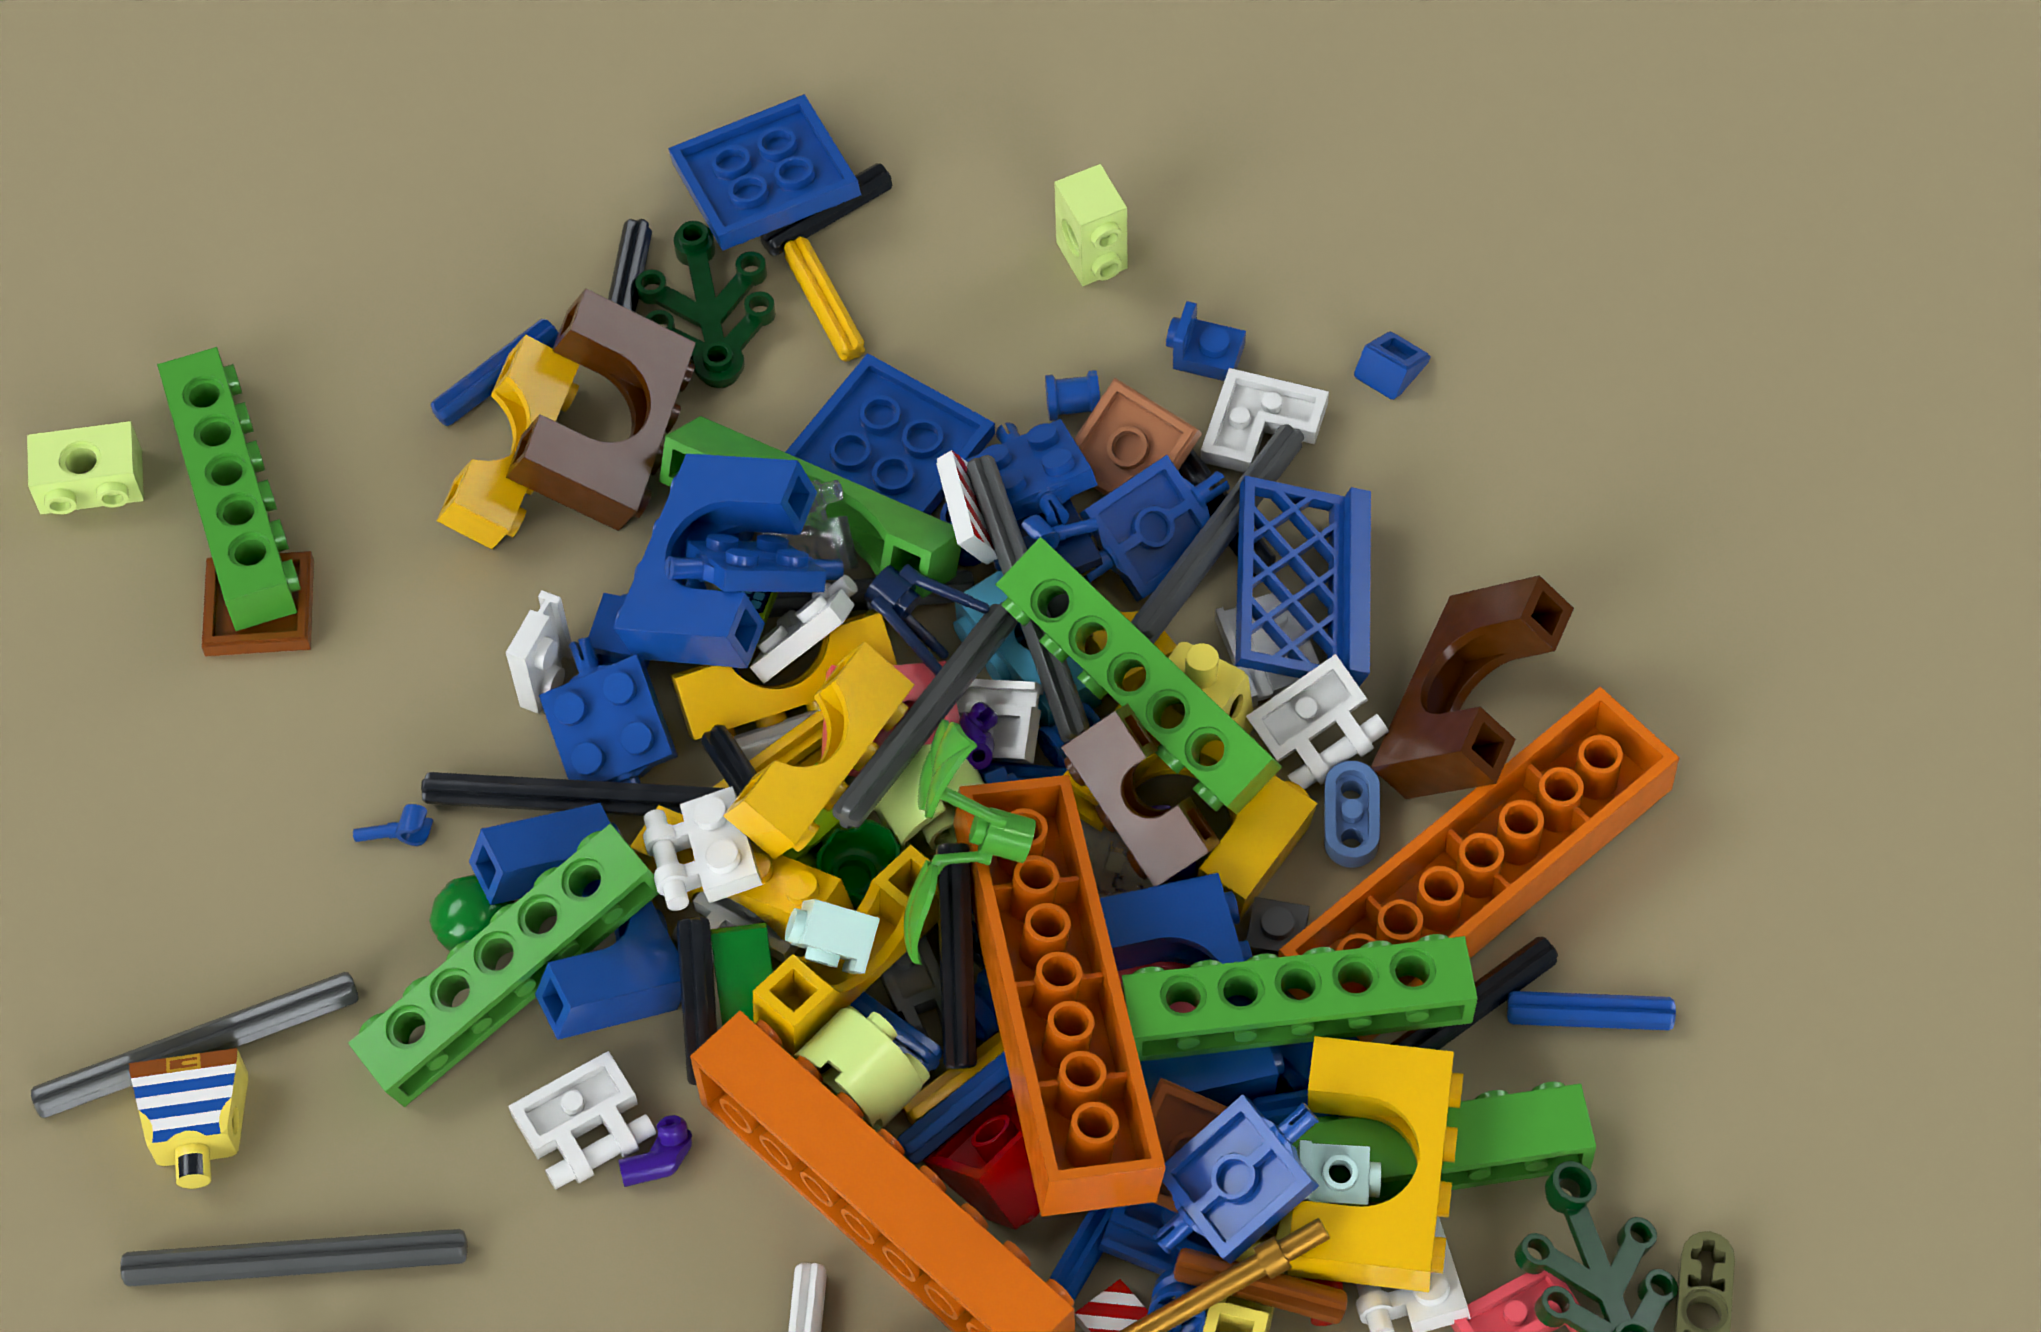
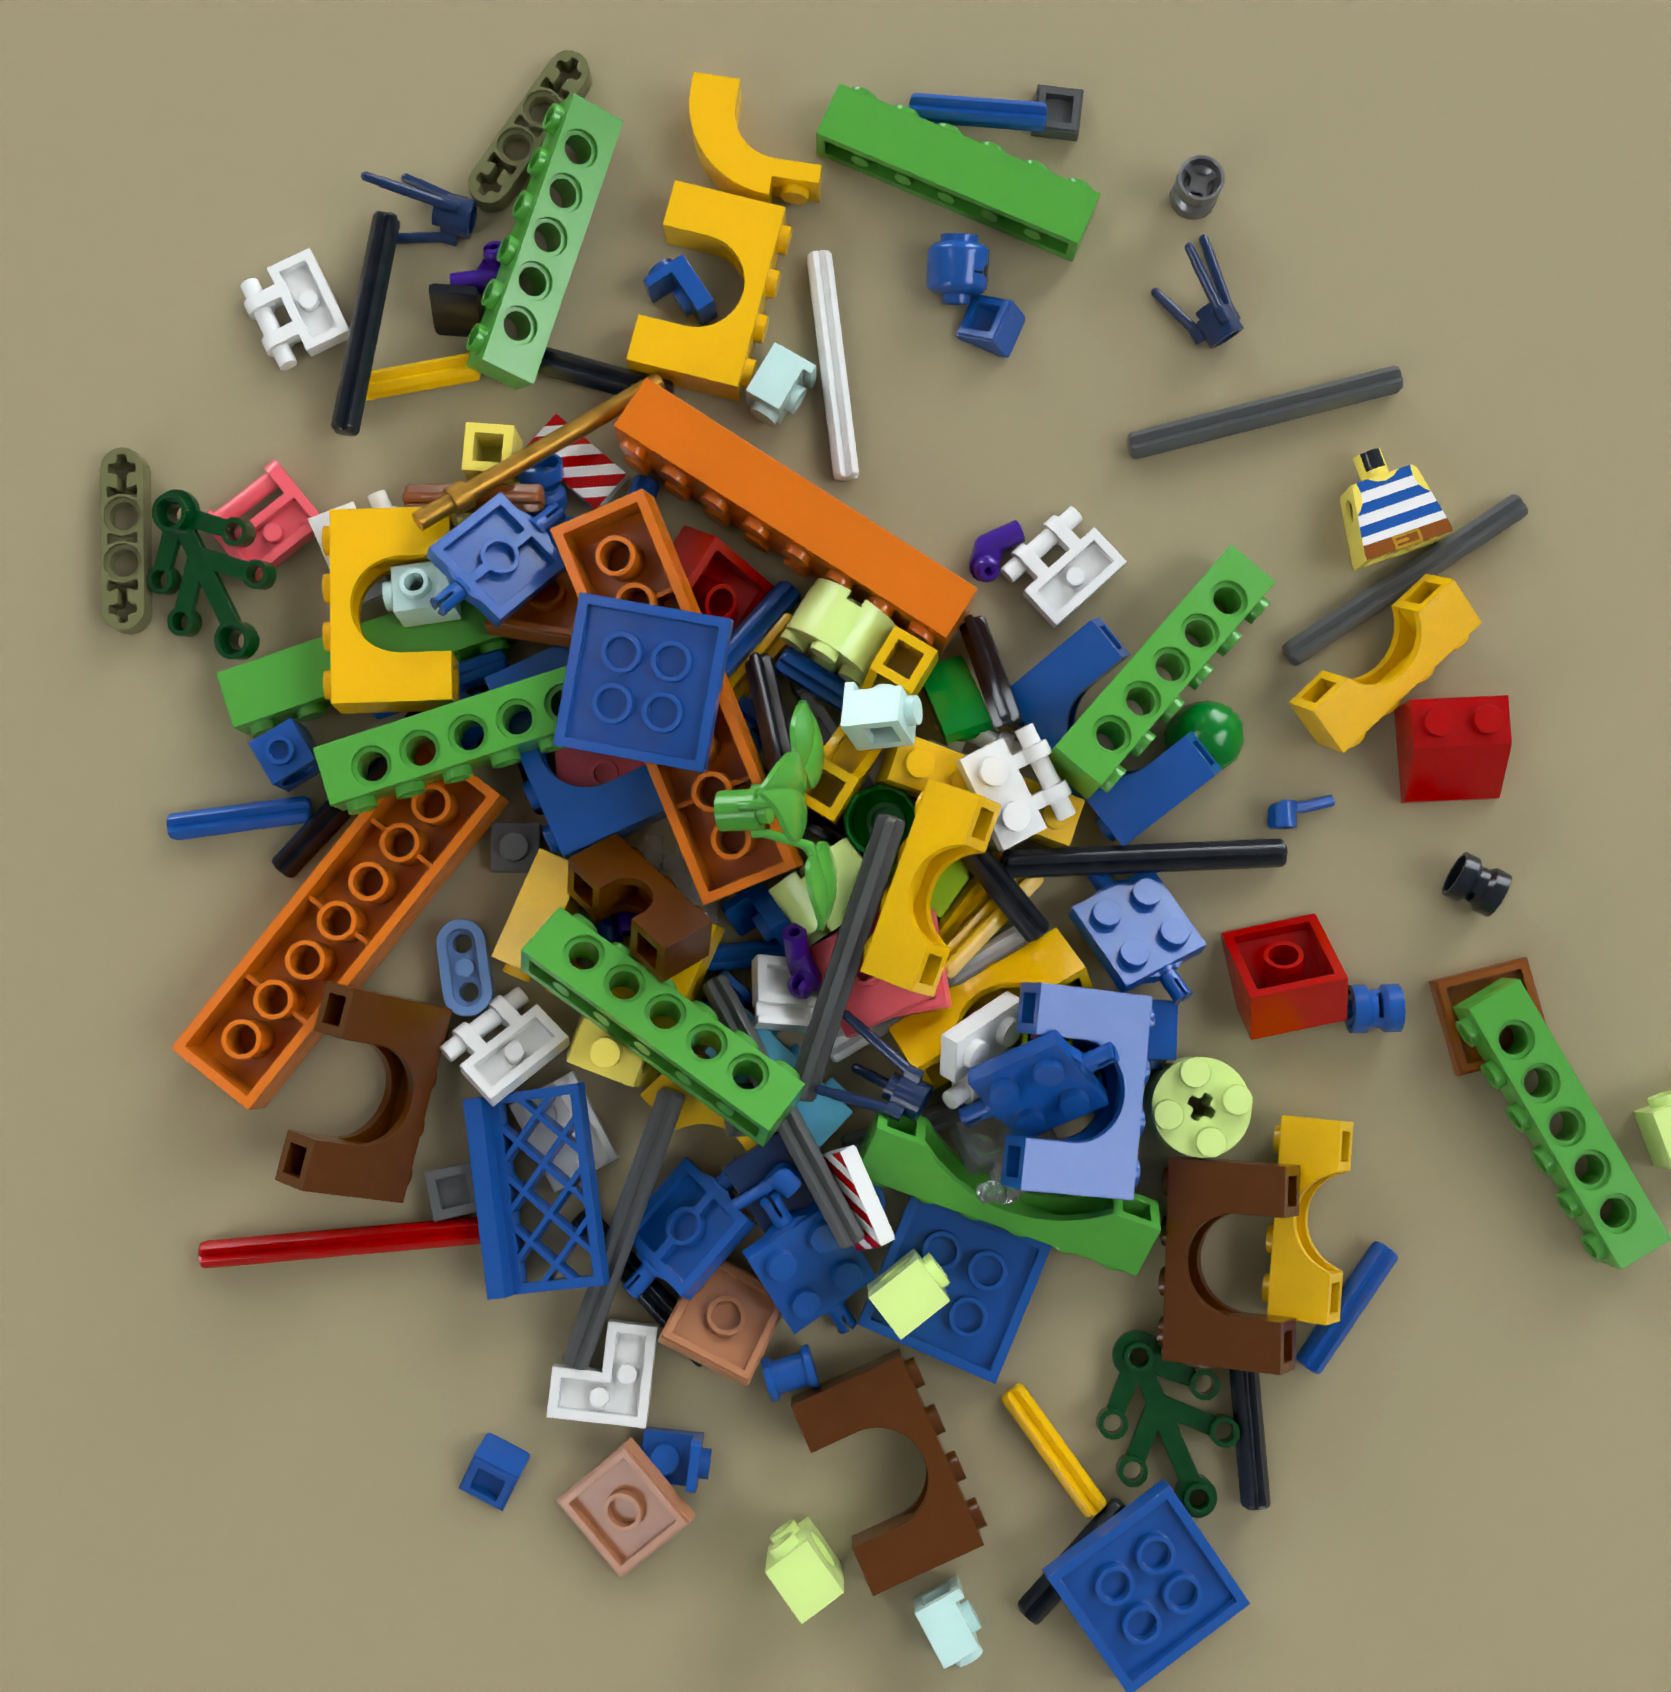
camera: 165 degrees right, 25 degrees up
(206, 861) = (1452, 748): none -> red slope
(227, 716) = (1476, 884): none -> black wheel
(305, 913) = (1428, 626): none -> yellow arch
(379, 620) = (1375, 1008): none -> blue wheel
(460, 667) = (1285, 976): none -> red slope
(538, 652) = (1216, 983): white plate -> none
(590, 551) = (1225, 1103): none -> yellowish green brick
(933, 416) = (909, 1292): none -> yellowish green brick
(962, 175) = (949, 1623): none -> light aqua brick
(983, 360) = (940, 1520): none -> reddish brown arch
(1087, 978) = (643, 682): none -> blue plate
(1261, 309) = (626, 1507): none -> nougat tile
(1396, 606) = (451, 1191): none -> dark grey plate
(1522, 1053) = (287, 754): none -> blue brick
(1569, 583) = (339, 1242): none -> red axle

